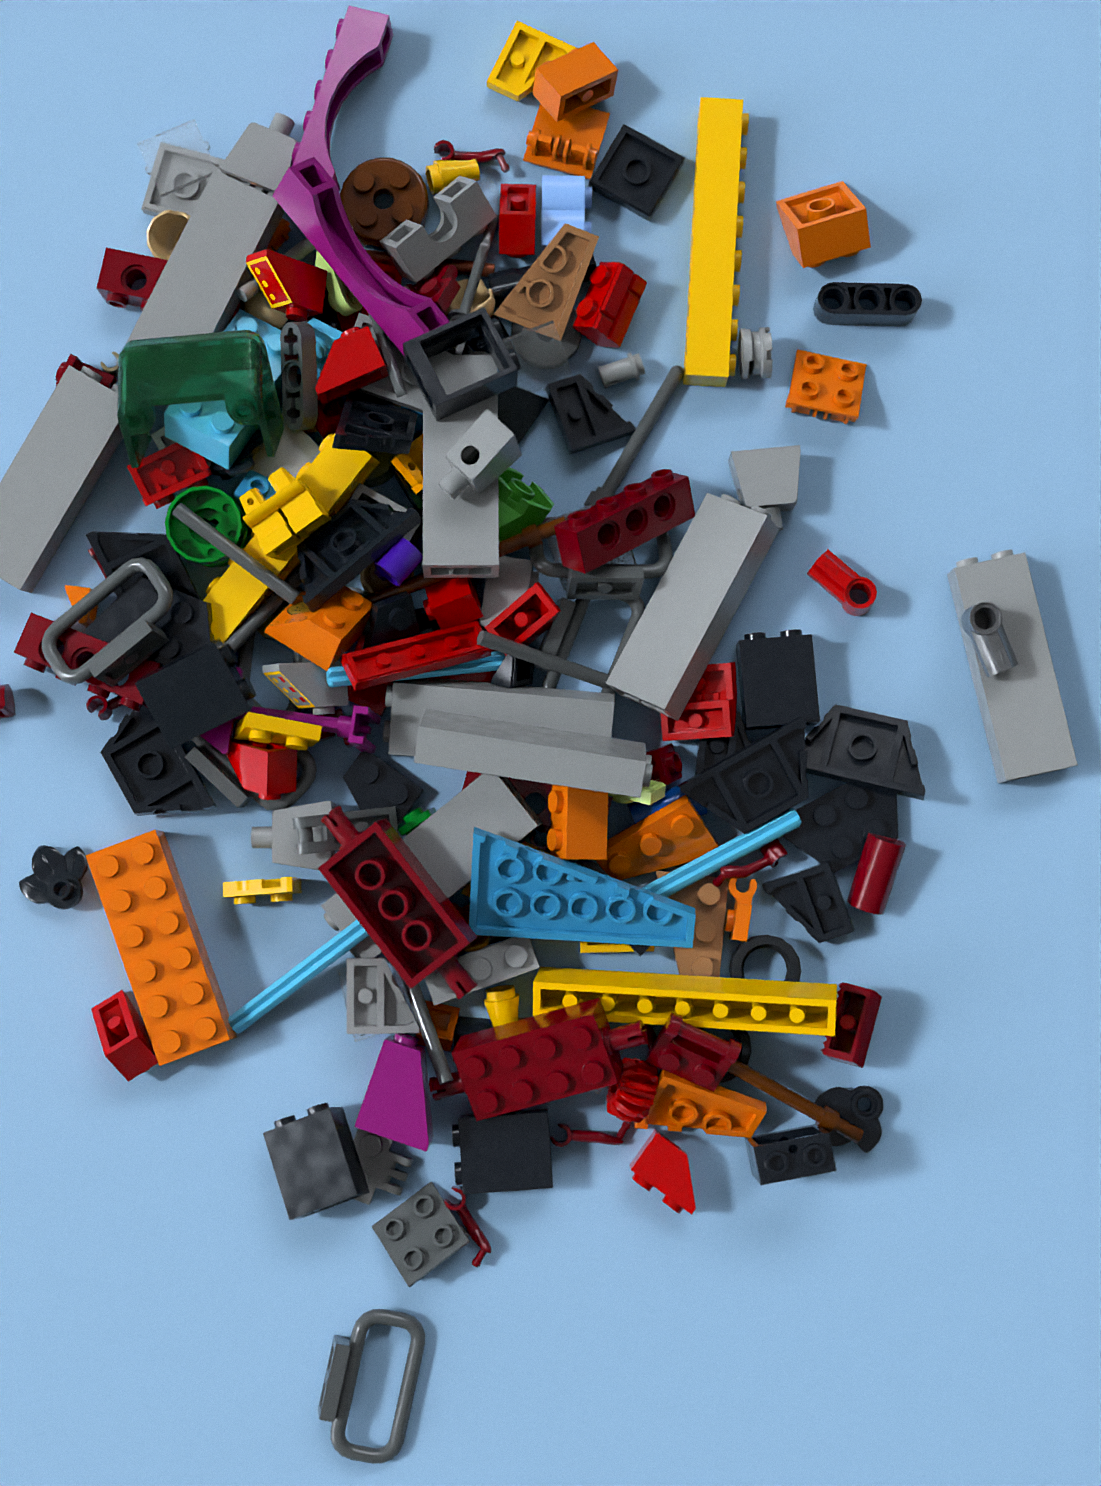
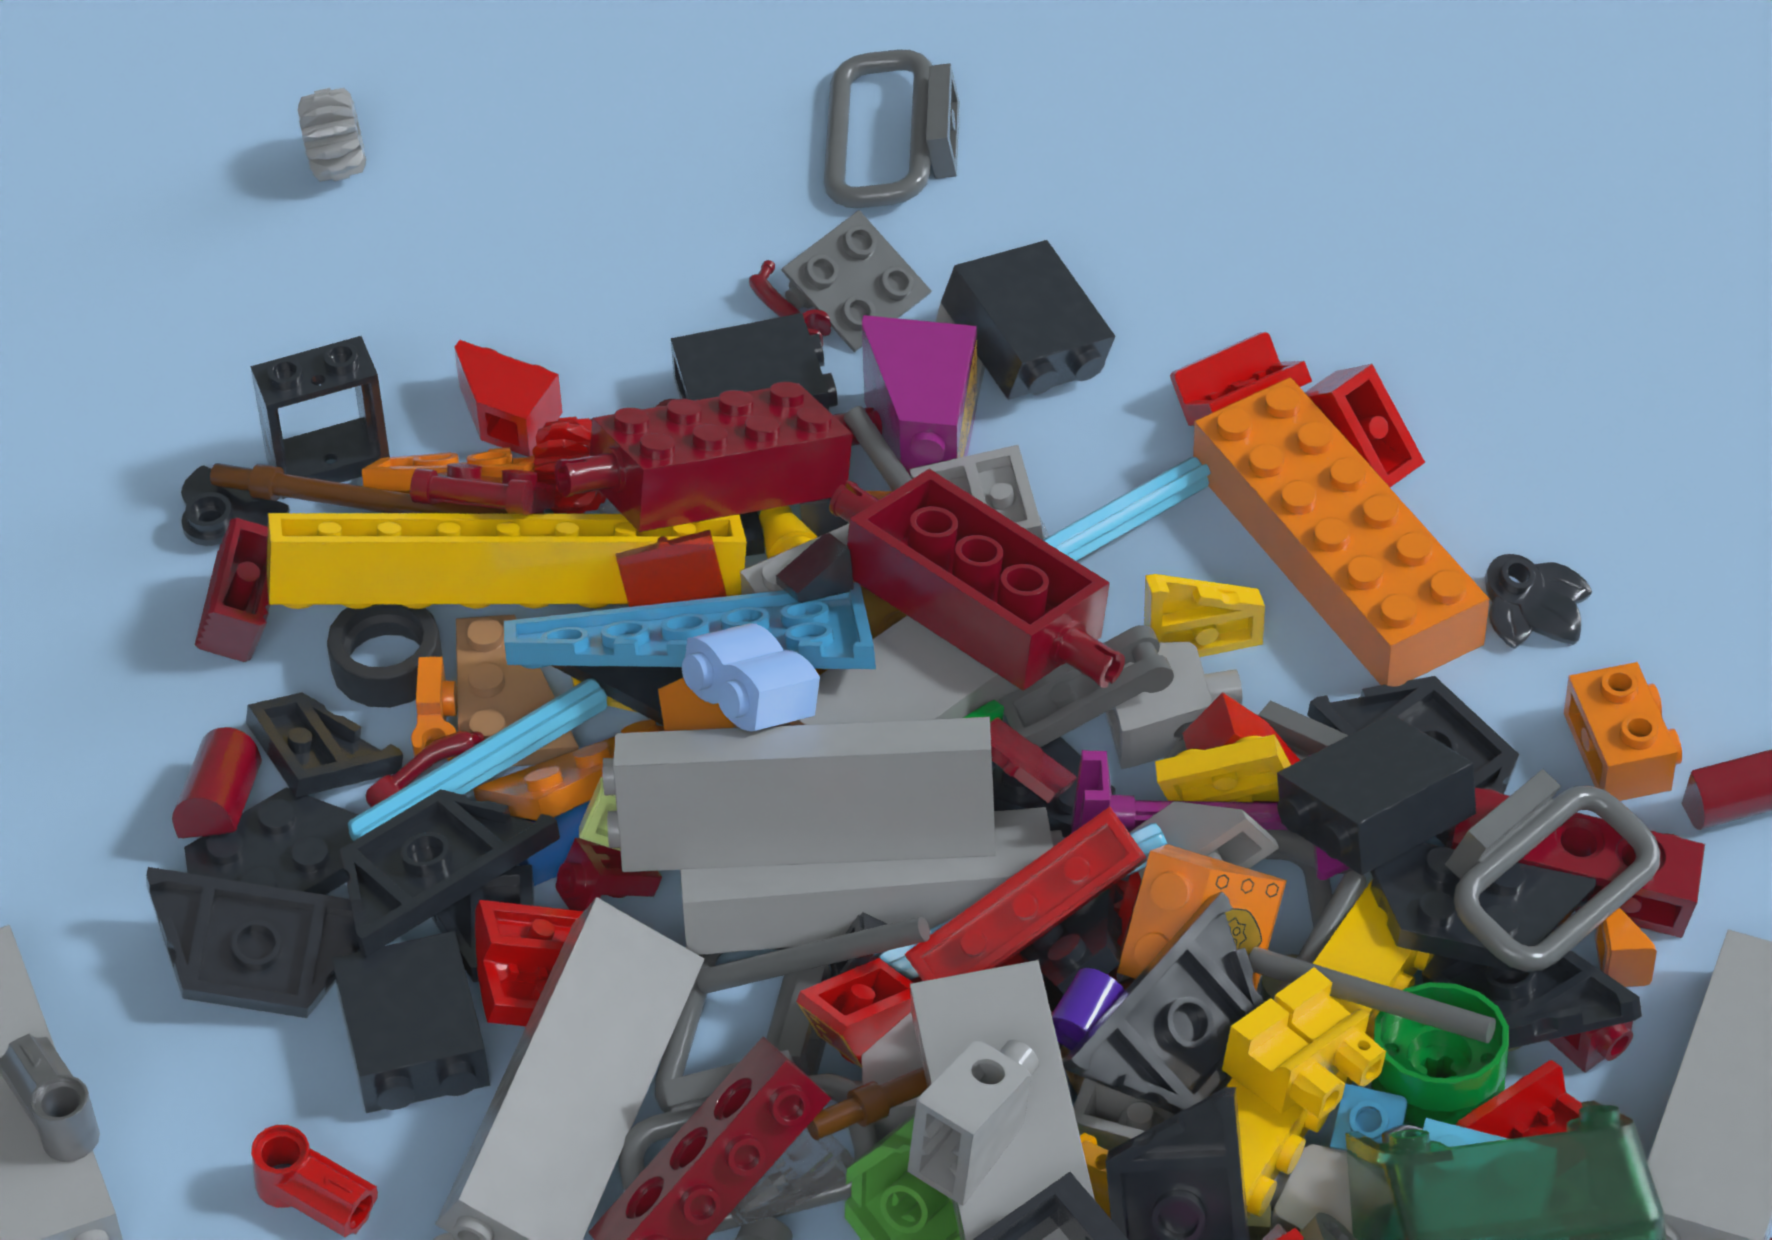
camera: 170 degrees right, 35 degrees down
(34, 758) = (1622, 731): none -> orange brick
(191, 1085) = (1232, 376): none -> red bracket
(396, 774) = (1028, 762): none -> dark red piece
(495, 937) = (818, 571): none -> black slope
(553, 819) = (751, 677): none -> light blue brick
(582, 969) = (671, 571): none -> clear red piece
(757, 1440) = (331, 134): none -> light grey gear

